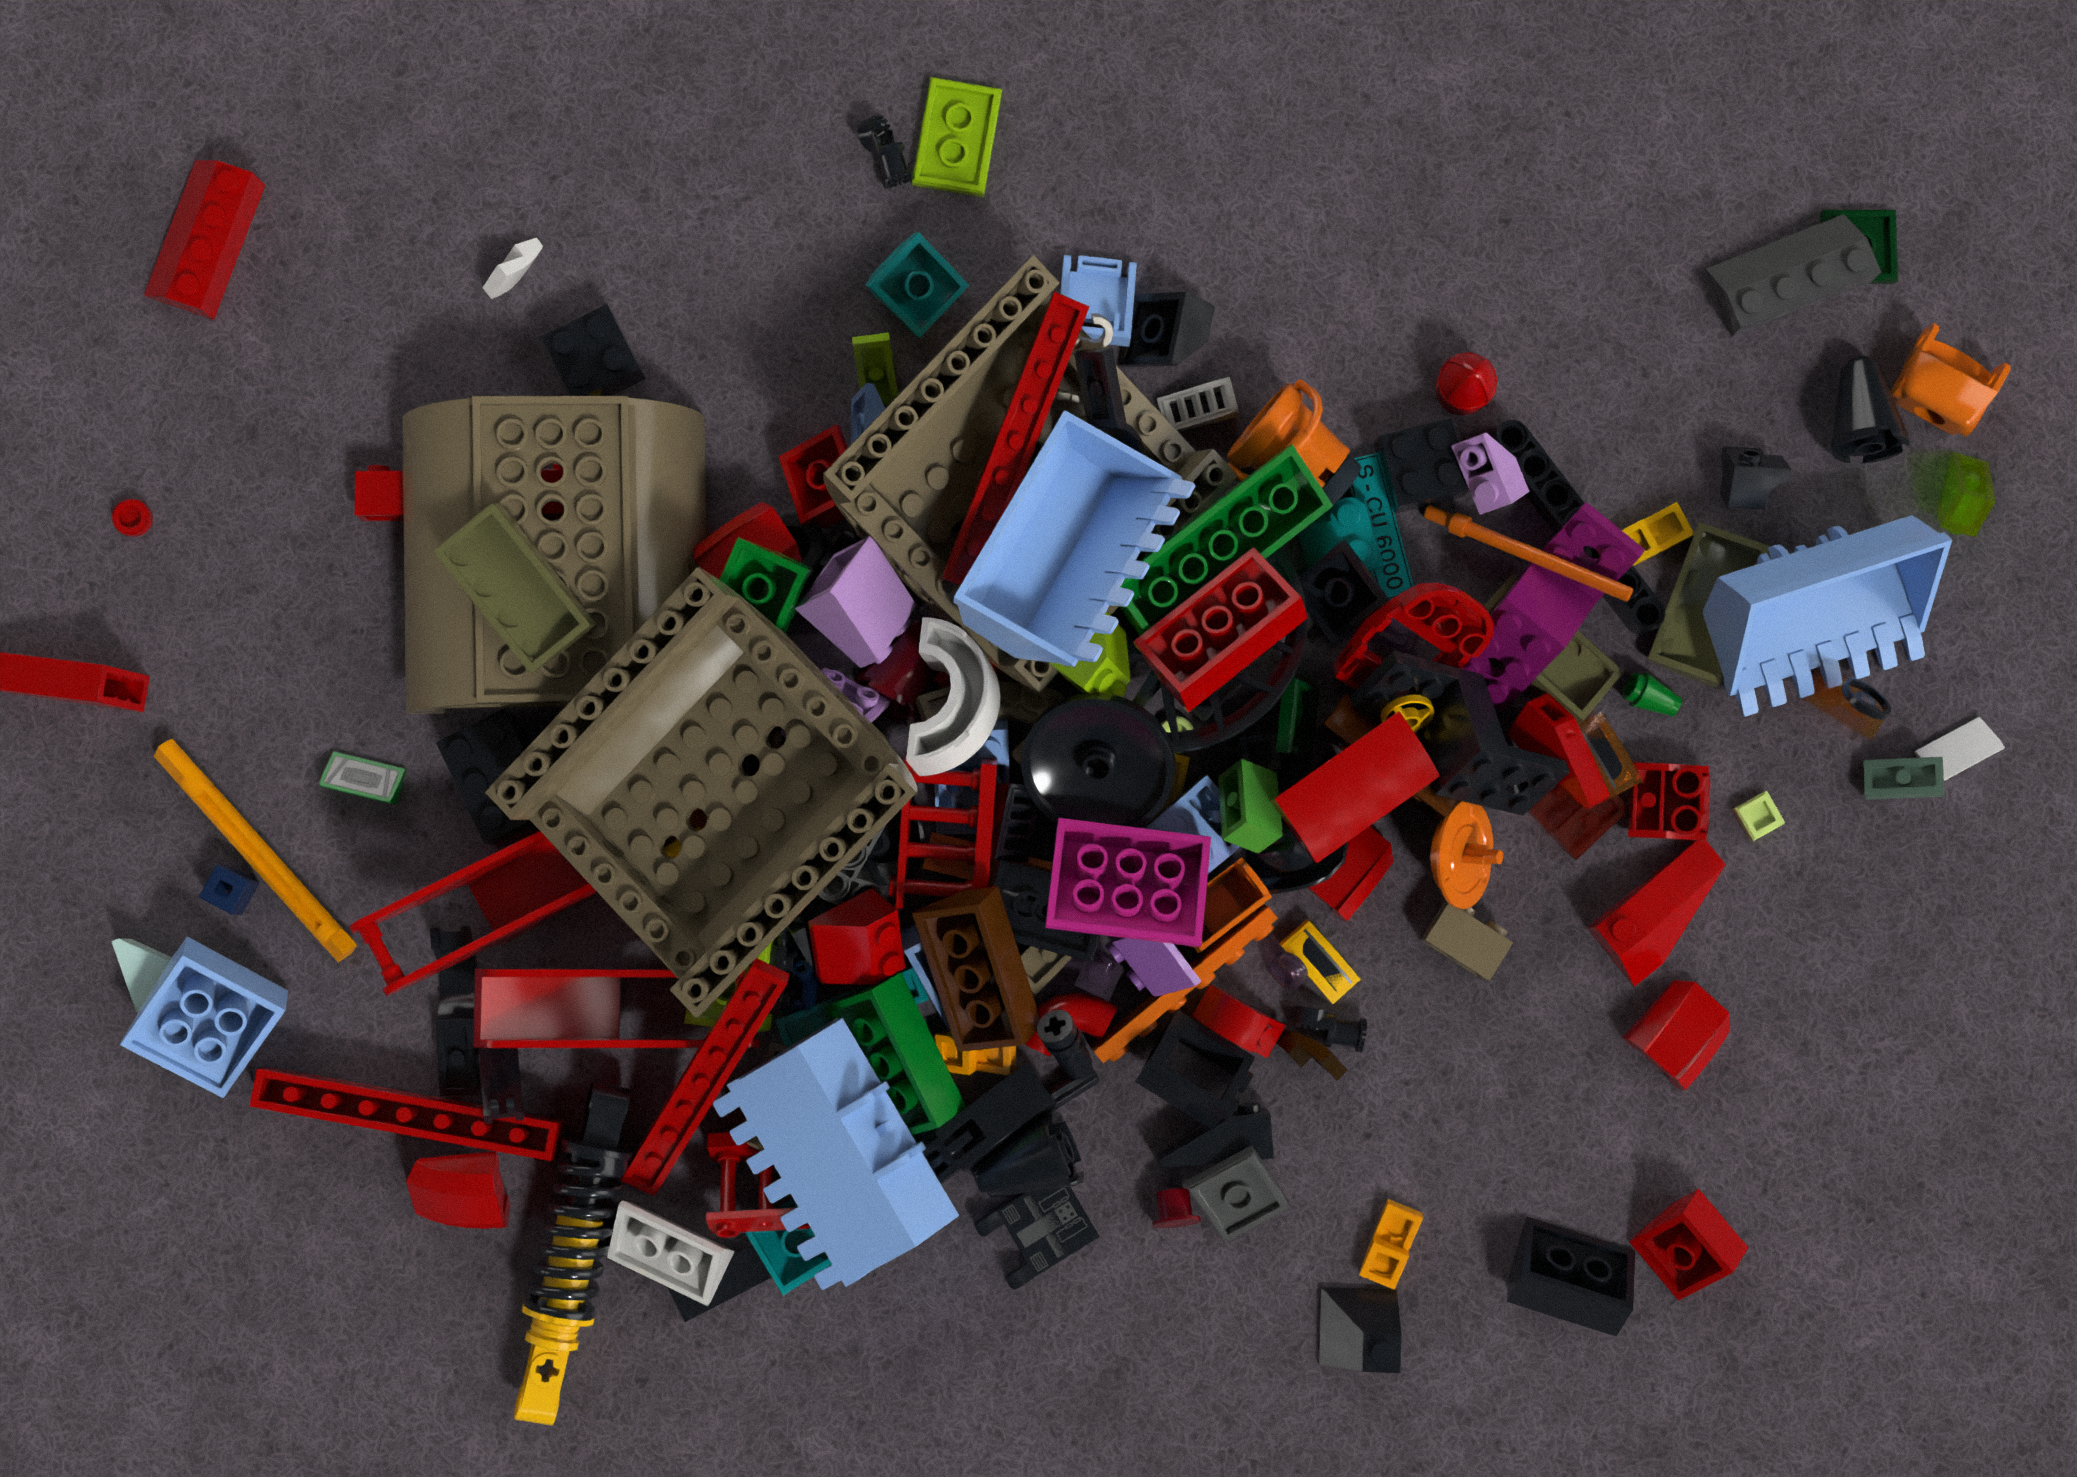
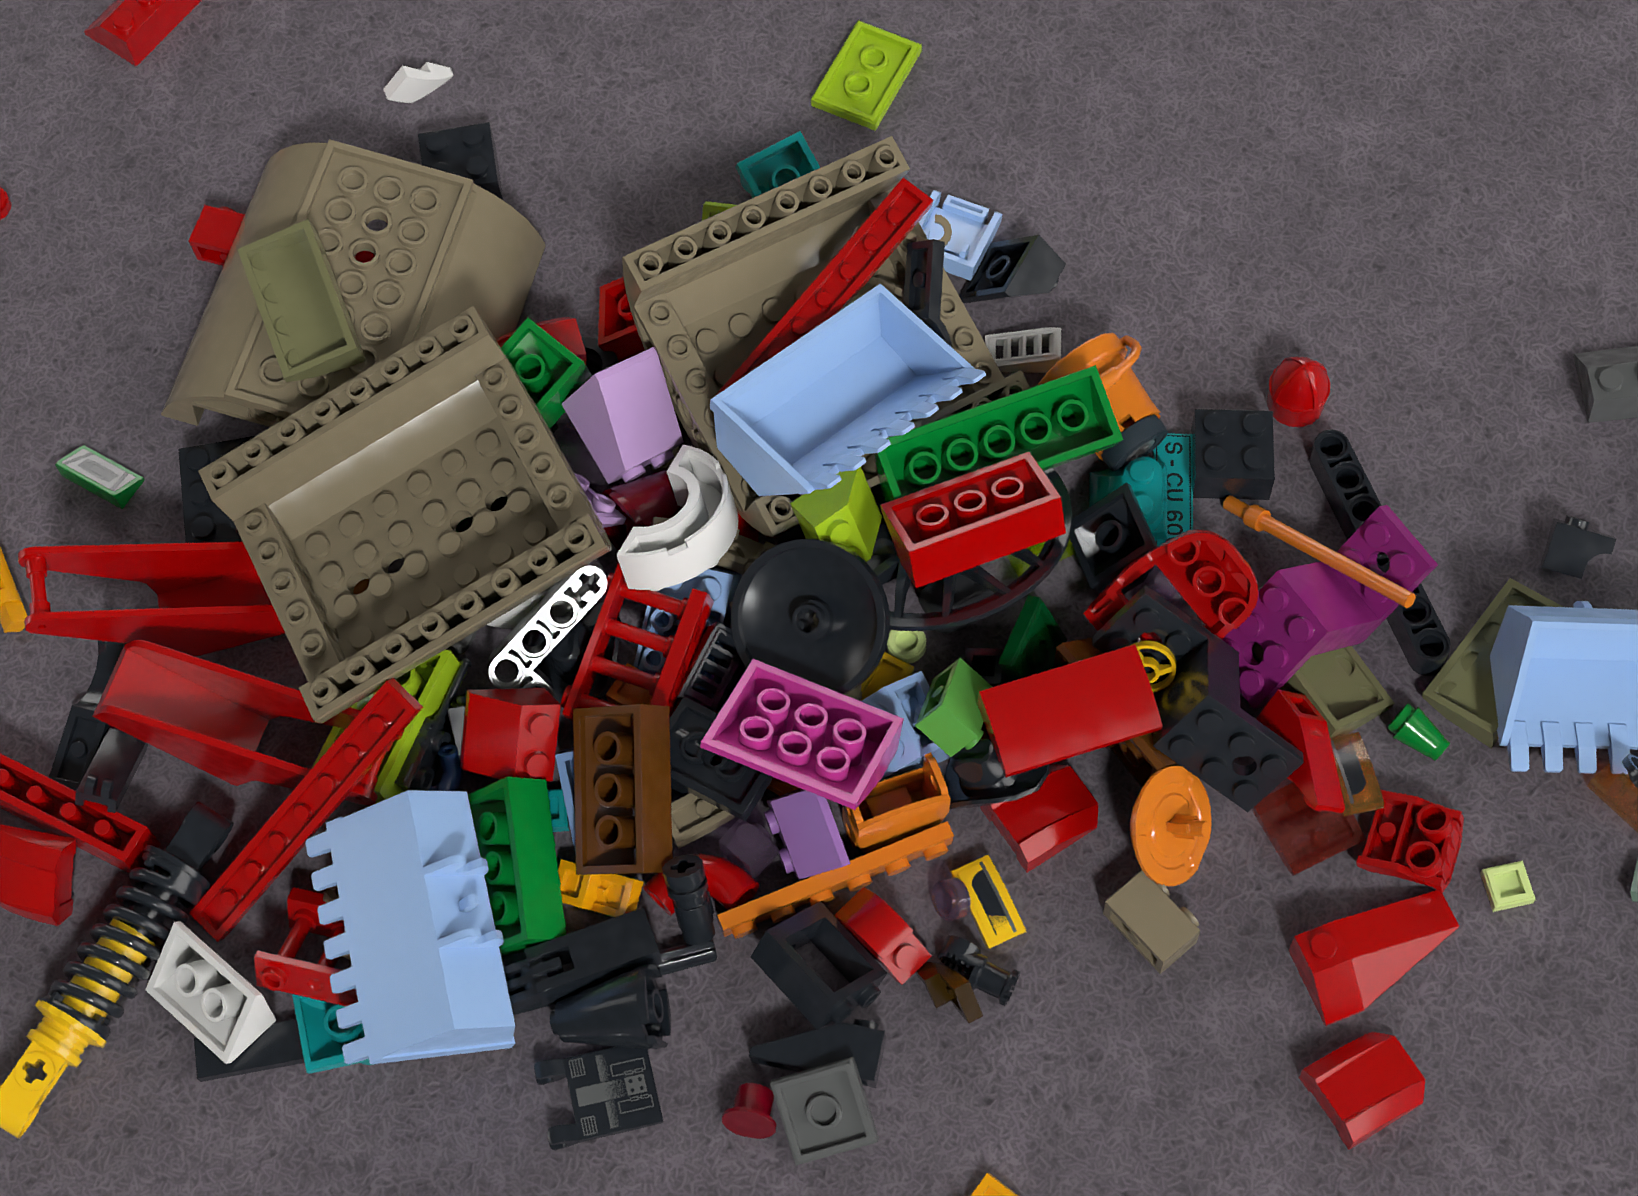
camera: 25 degrees right, 20 degrees down
(885, 150) = (795, 67): black connector -> none
(1489, 472) = (1298, 468): lavender slope -> none
(1660, 531) = (1462, 581): yellow slope -> none

